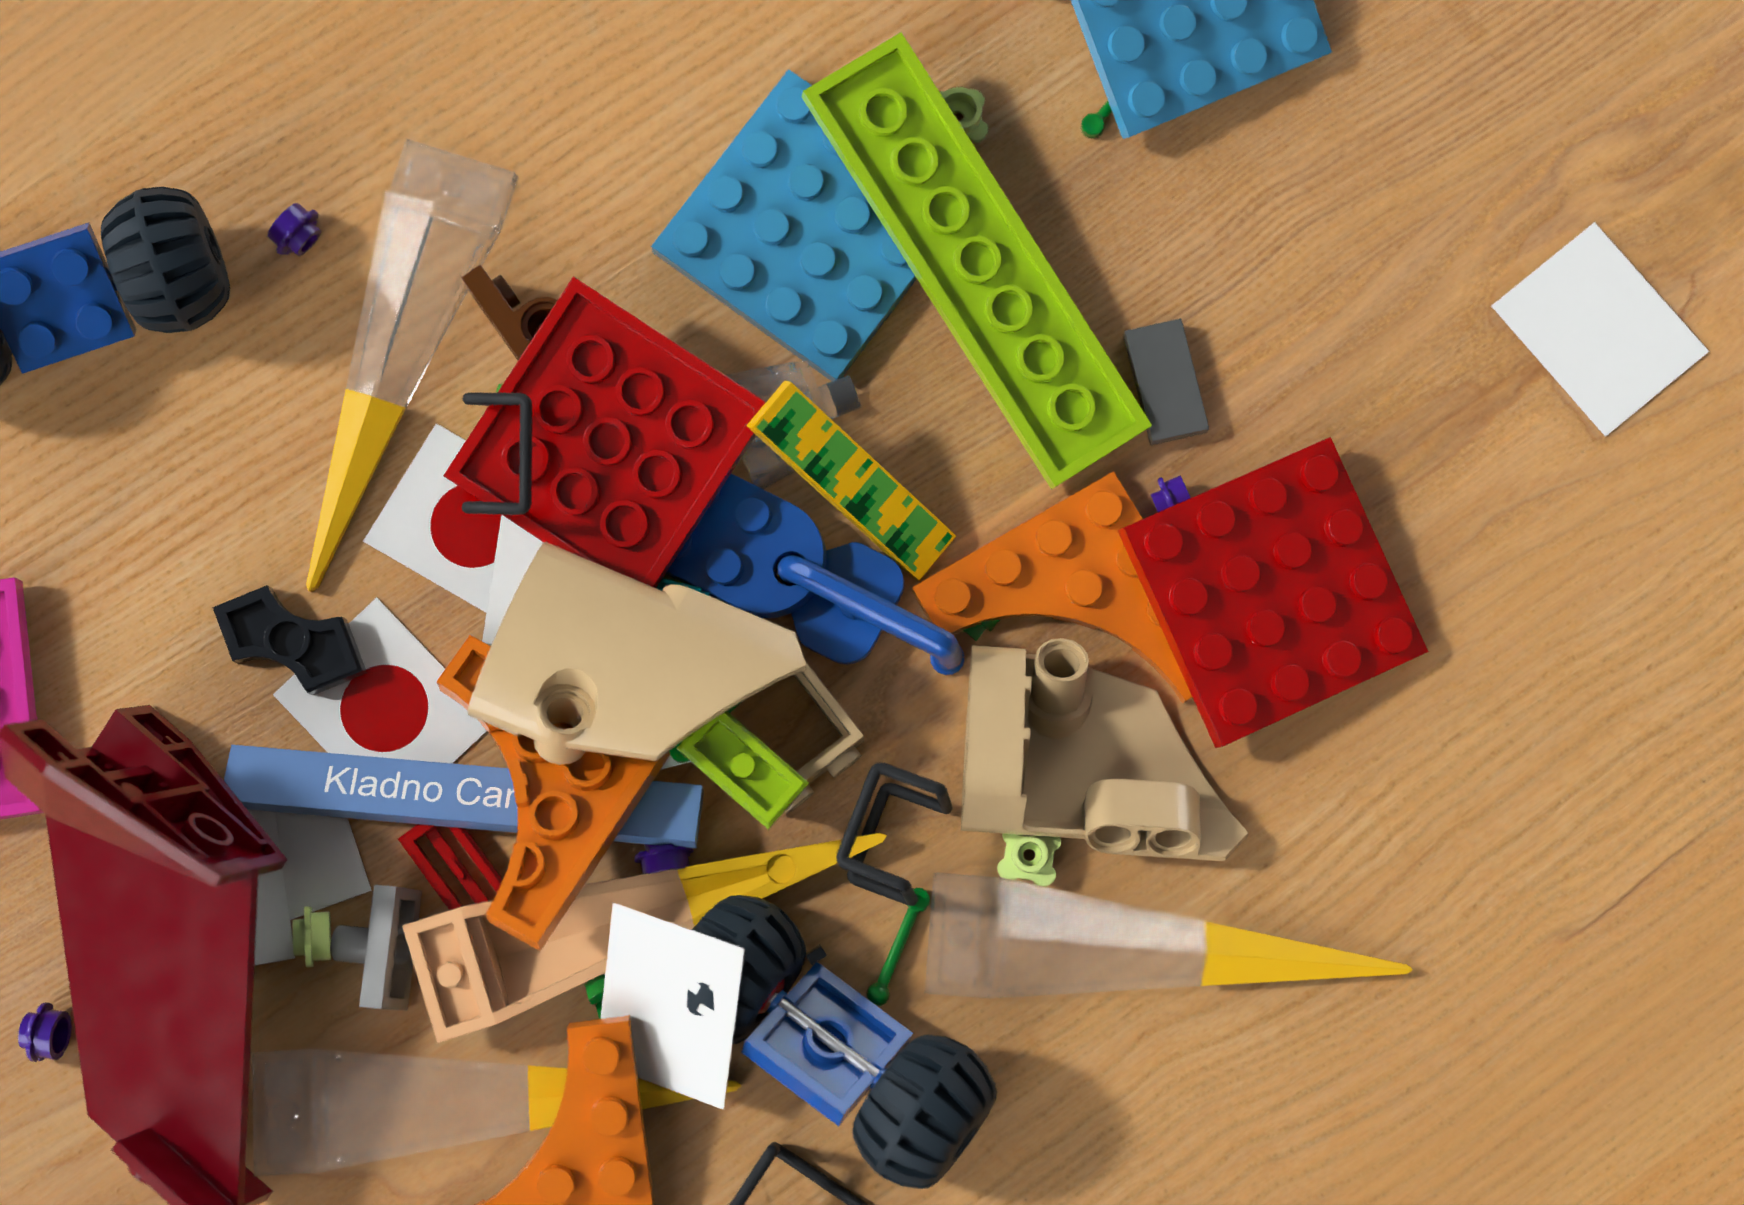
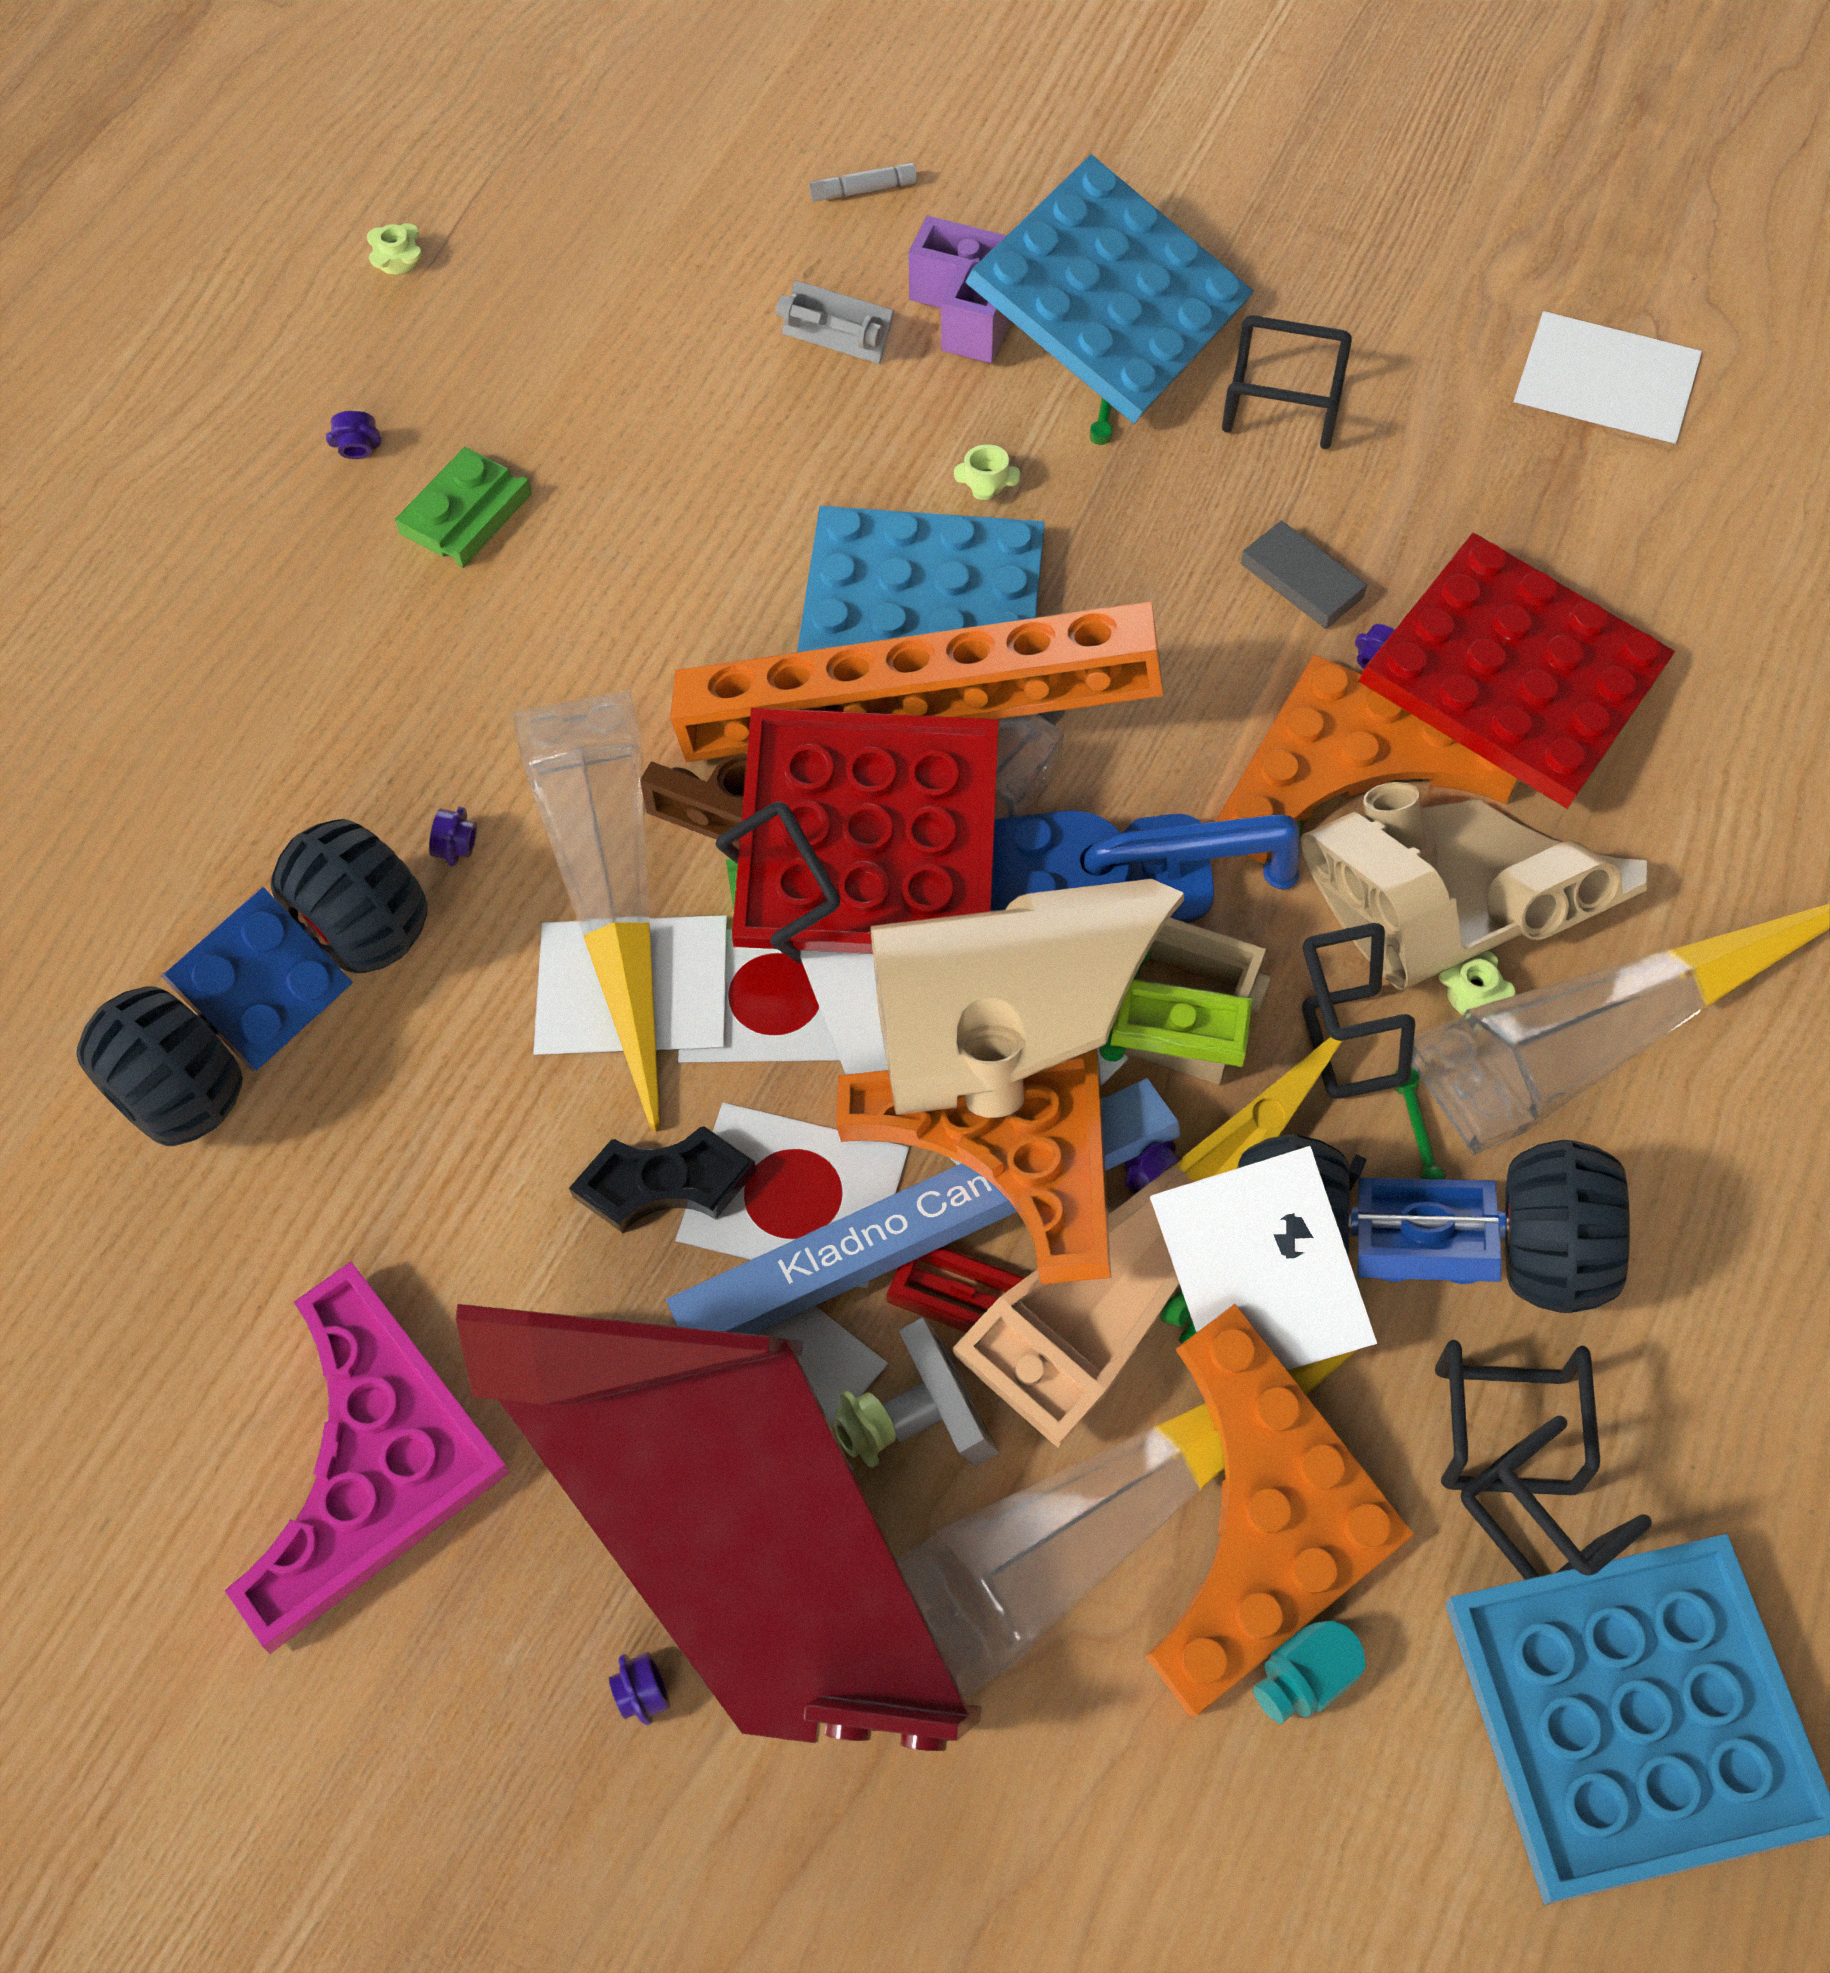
camera: 30 degrees left, 20 degrees down
(406, 475) = (686, 979): none -> white sticker
(851, 480) = (1102, 754): tile -> none
(909, 420) = (950, 673): none -> orange brick
(976, 260) = (1086, 550): lime plate -> none
(1222, 172) = (1331, 402): none -> black piece

